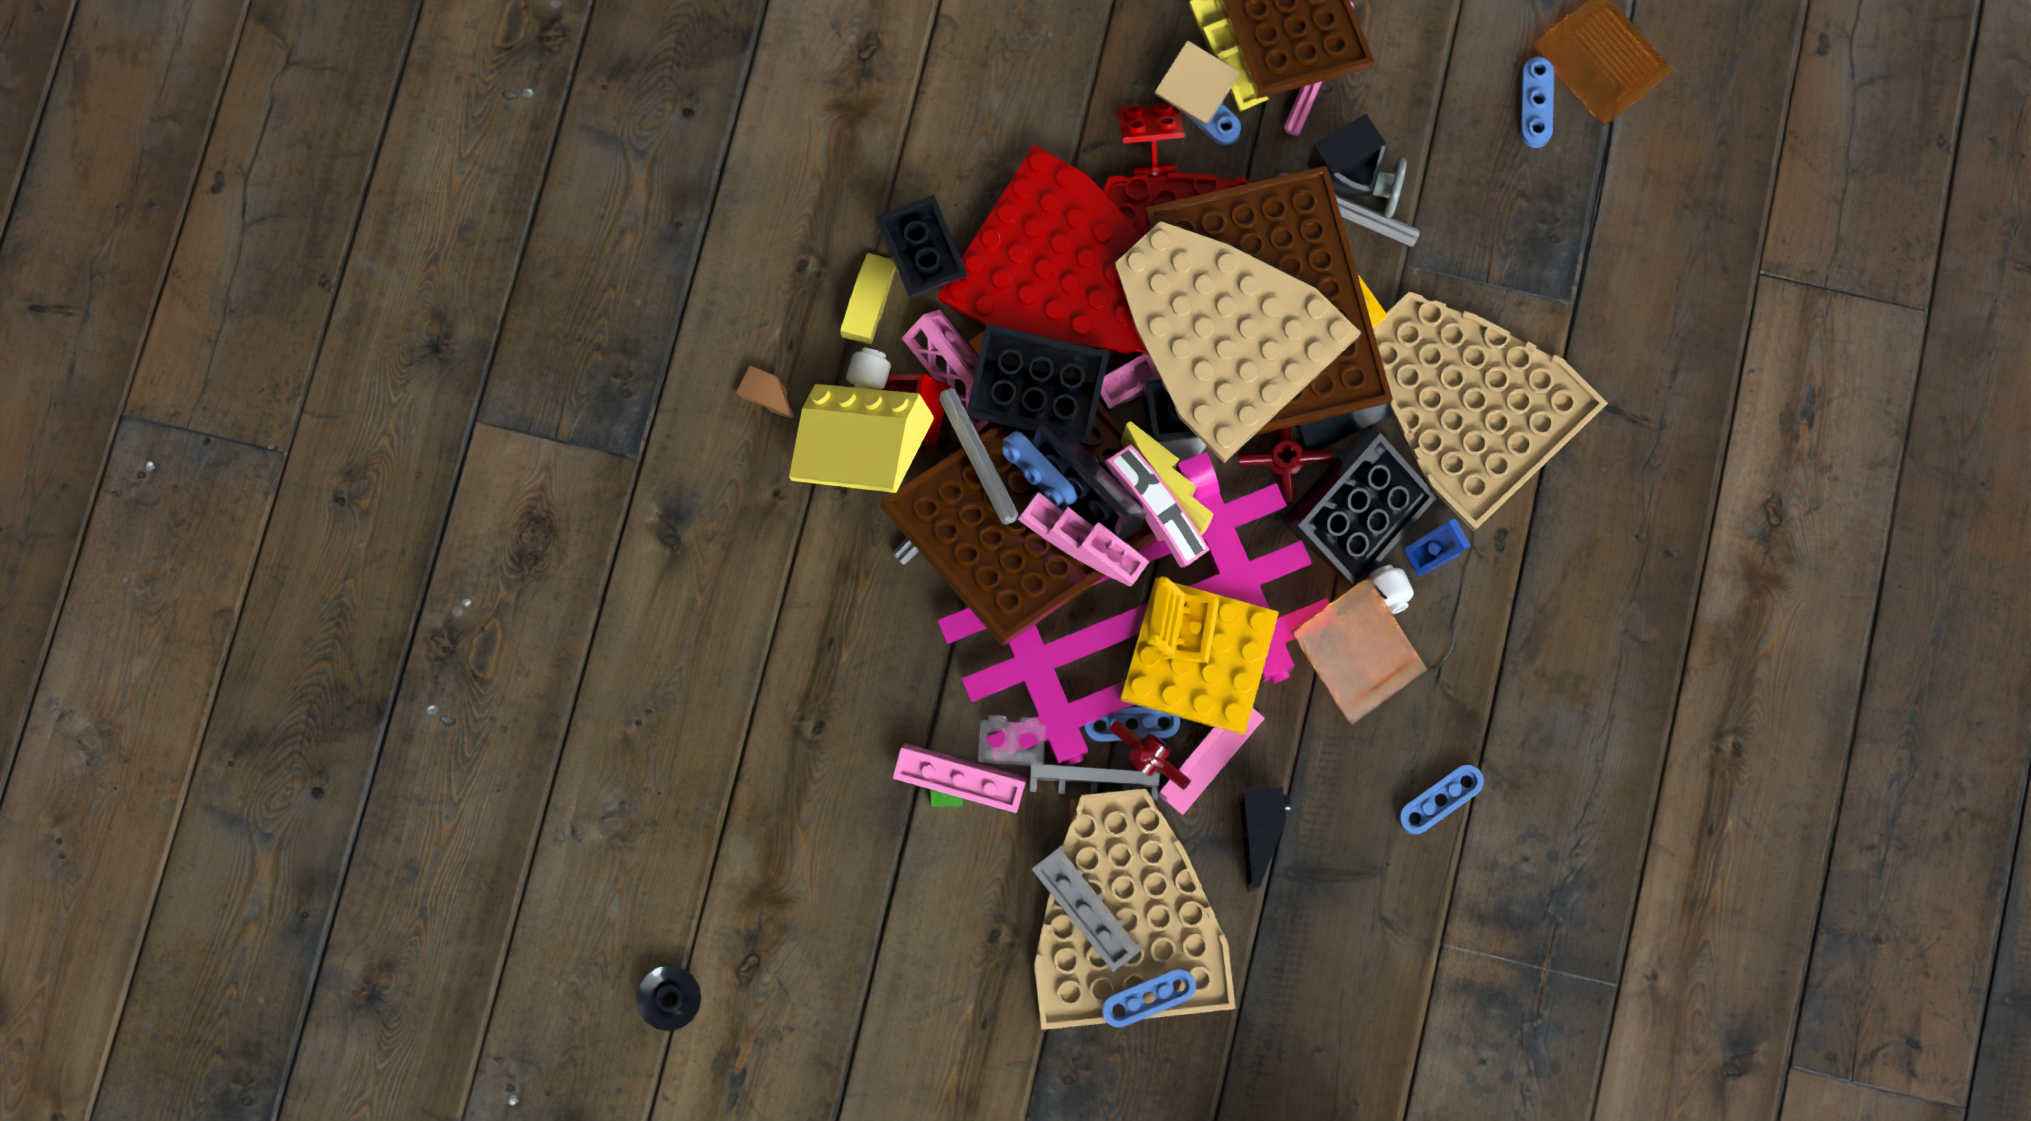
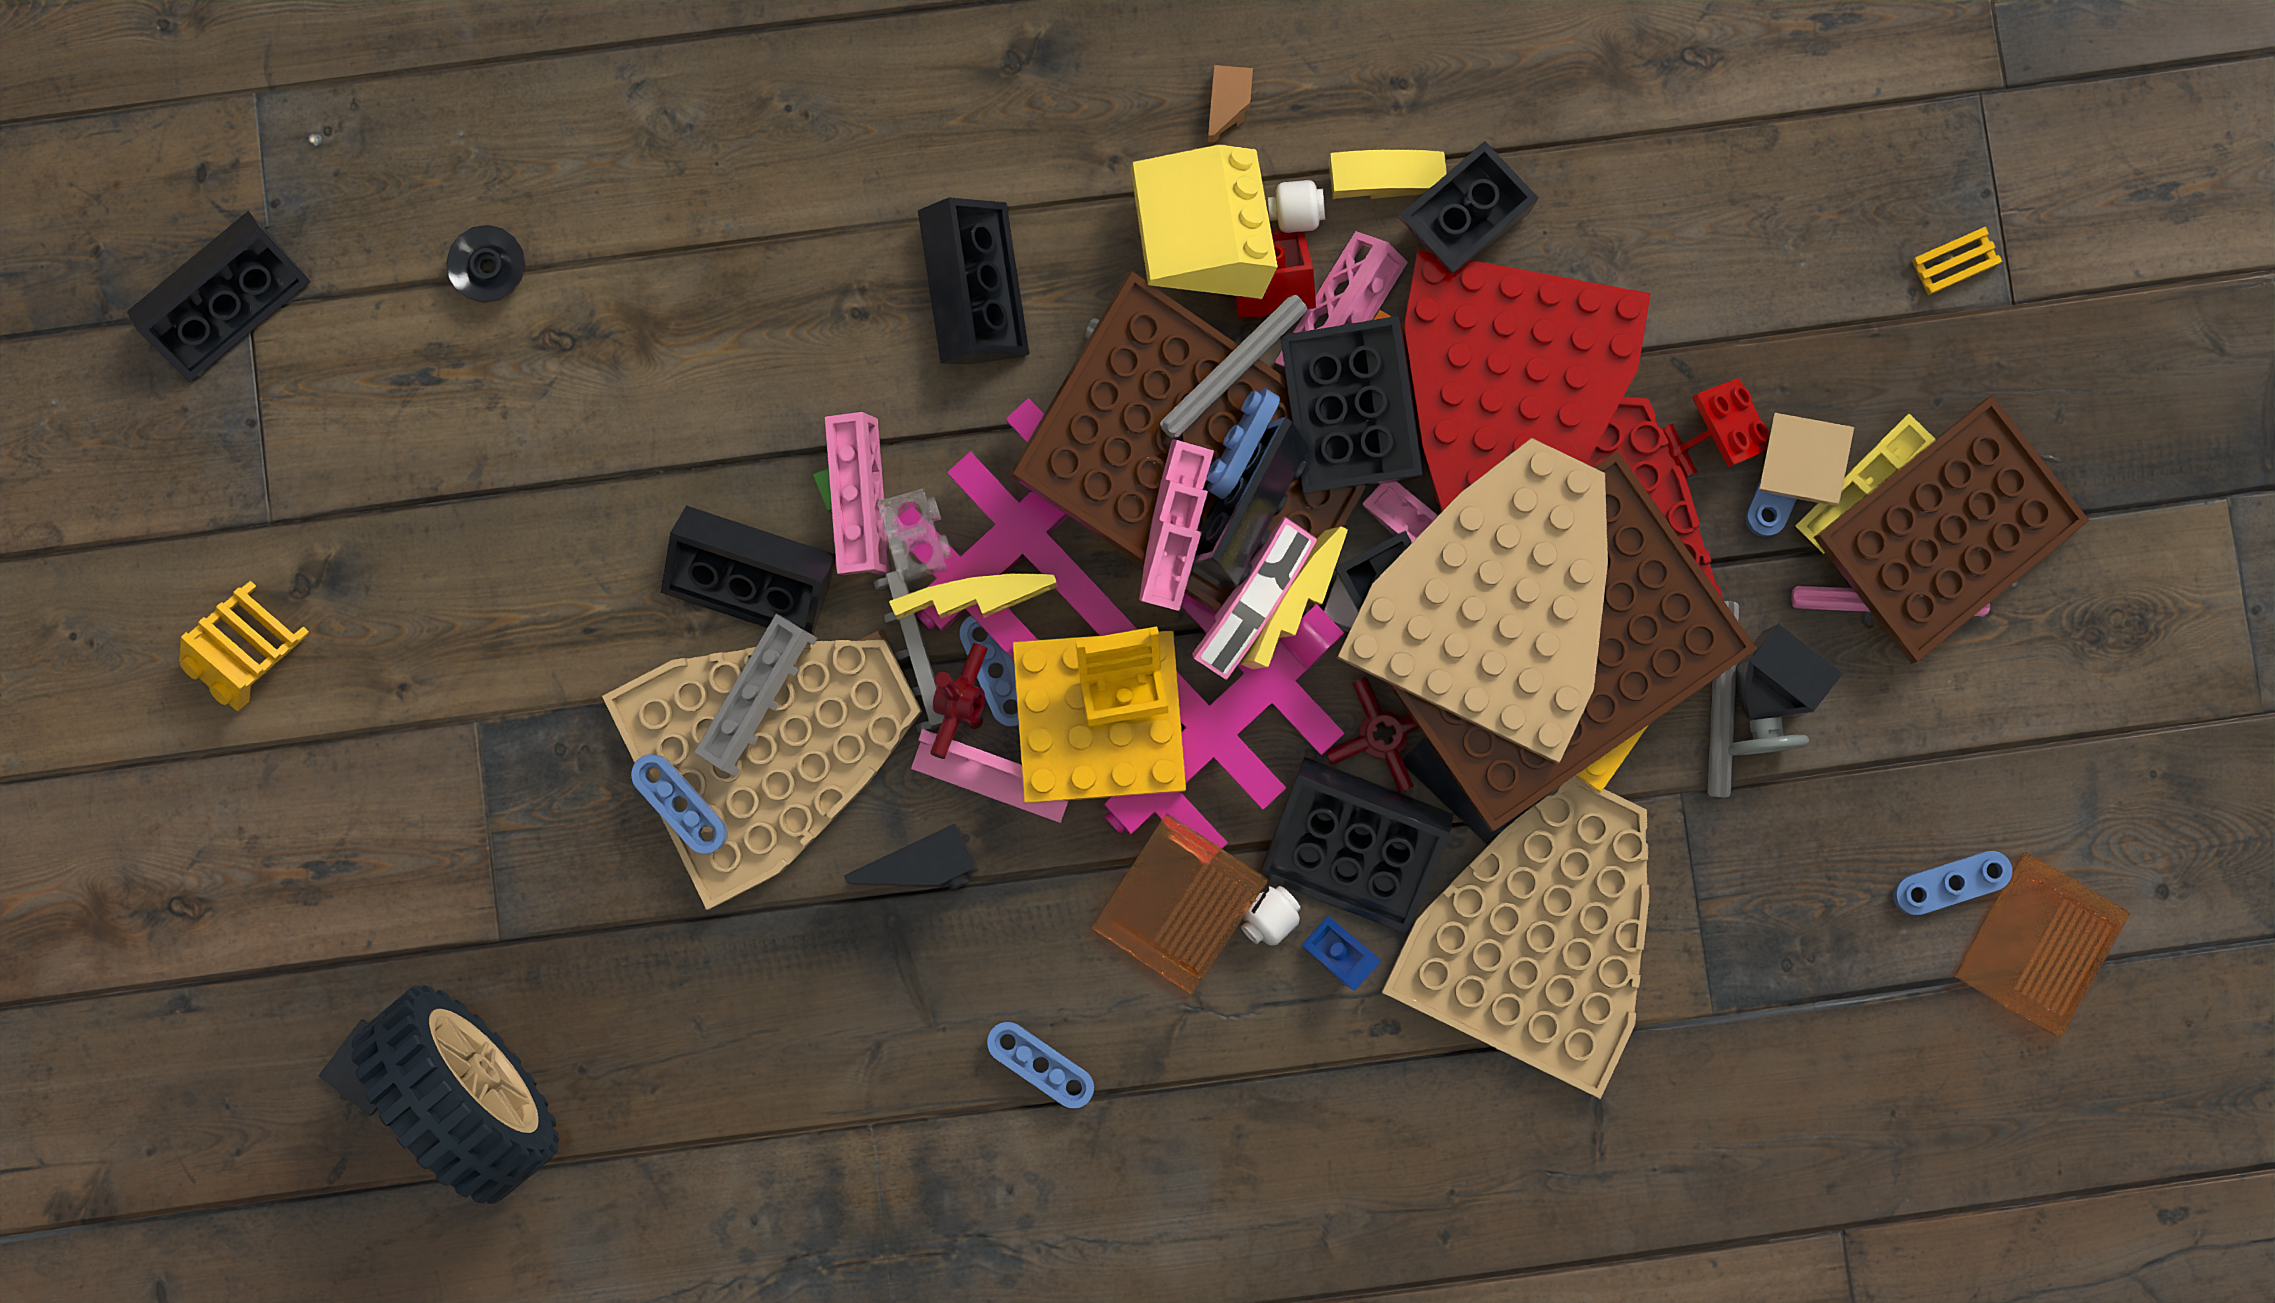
camera: 70 degrees right, 5 degrees up
(830, 631) = (973, 281): none -> black slope
(986, 883) = (745, 571): none -> black slope
(1077, 703) = (989, 592): none -> light yellow slope

